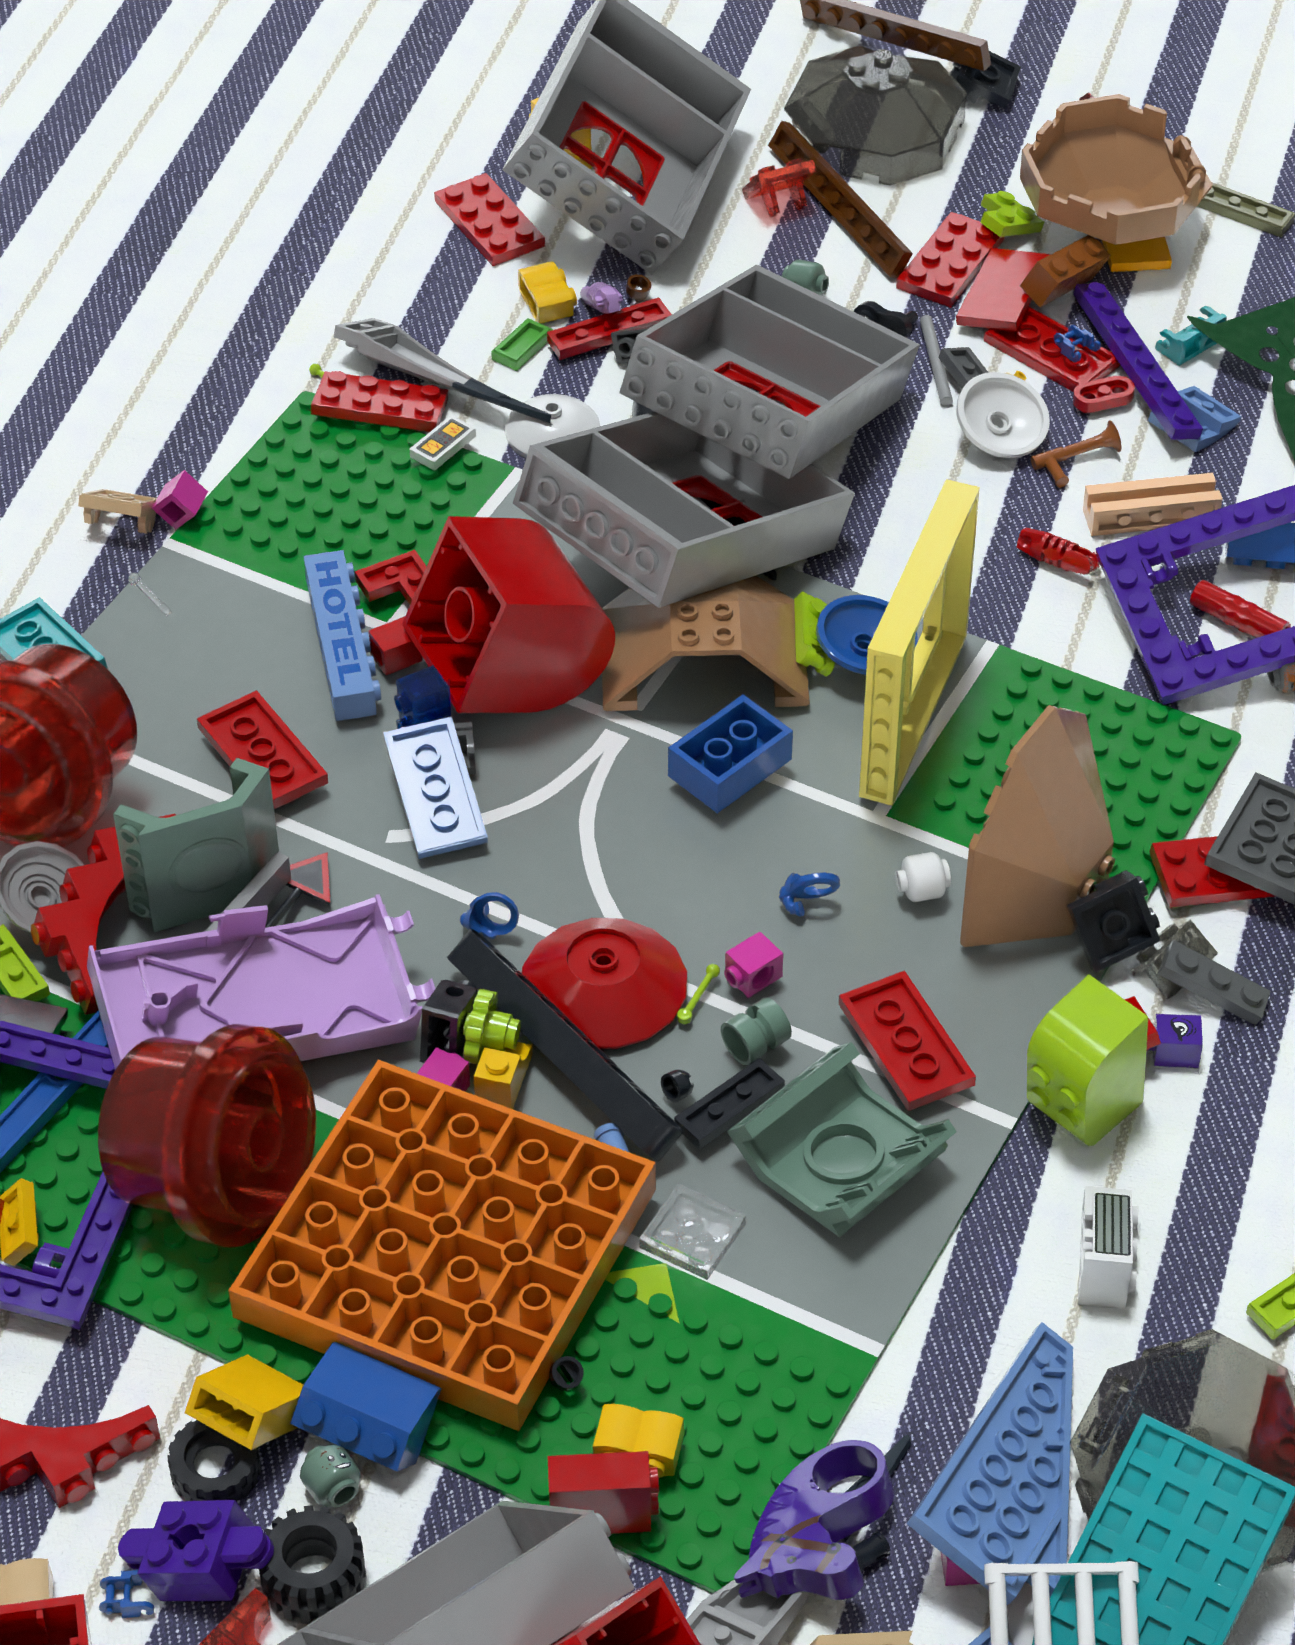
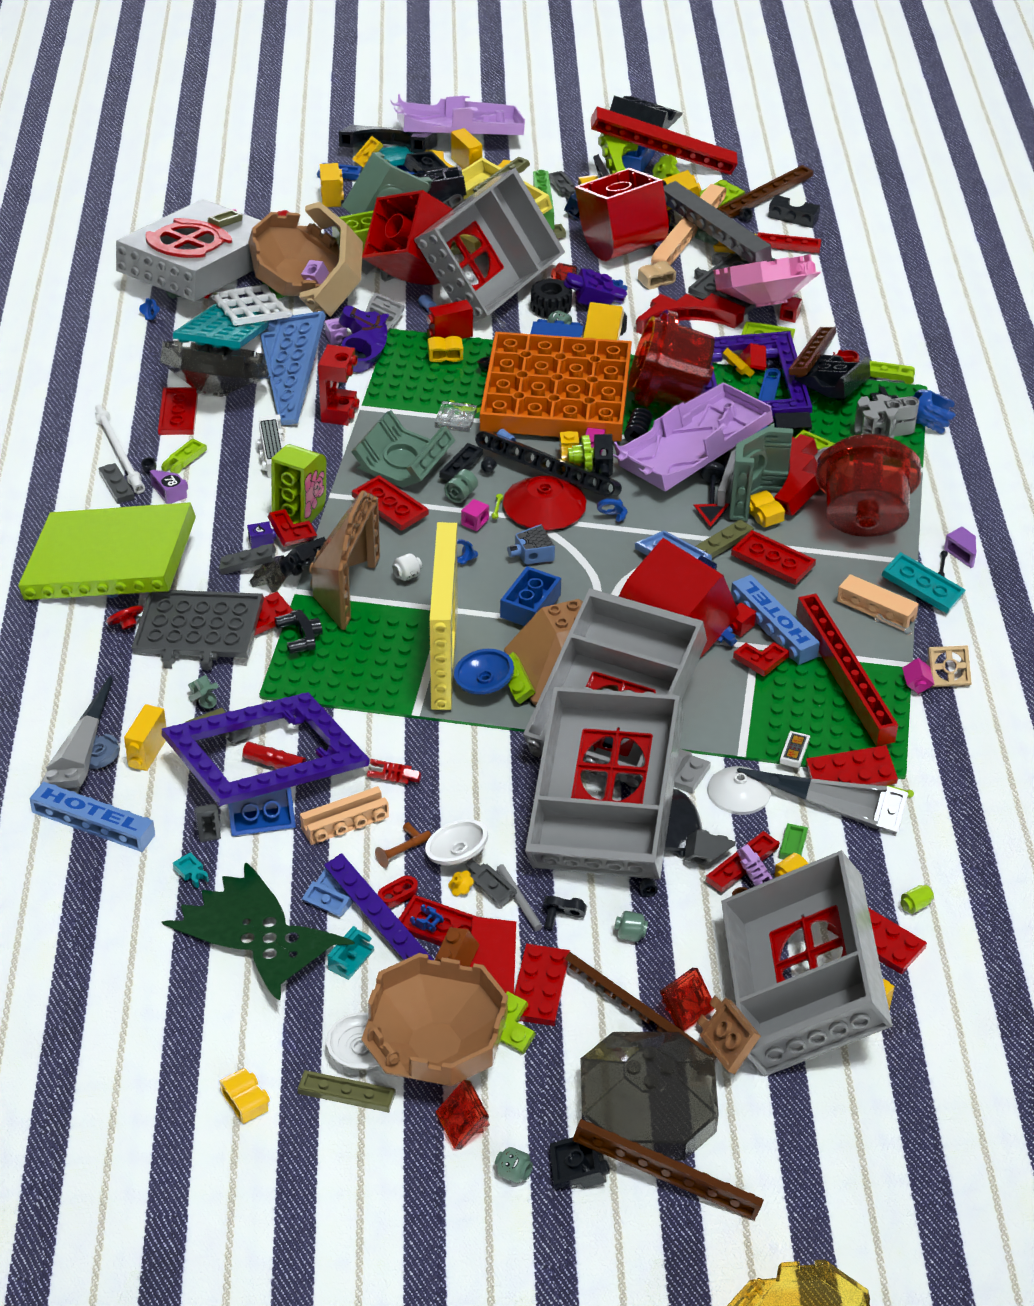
camera: 160 degrees right, 5 degrees down
(149, 623) = (877, 600): none -> light nougat brick
(289, 521) = (847, 671): none -> red brick
(335, 1090) = (638, 424): none -> black piece
(337, 811) = (725, 538): none -> olive plate
(411, 235) = (917, 898): none -> lime brick
(676, 870) = (533, 546): none -> torso
(754, 119) = (728, 1034): none -> medium nougat tile
(877, 1615) = (334, 331): none -> lavender brick
(937, 1310) = (336, 366): none -> red plate
(1060, 85) = (513, 1165): none -> sand green head
(1137, 804) = (307, 628): none -> black connector
(1213, 229) = (346, 1045): none -> white hat

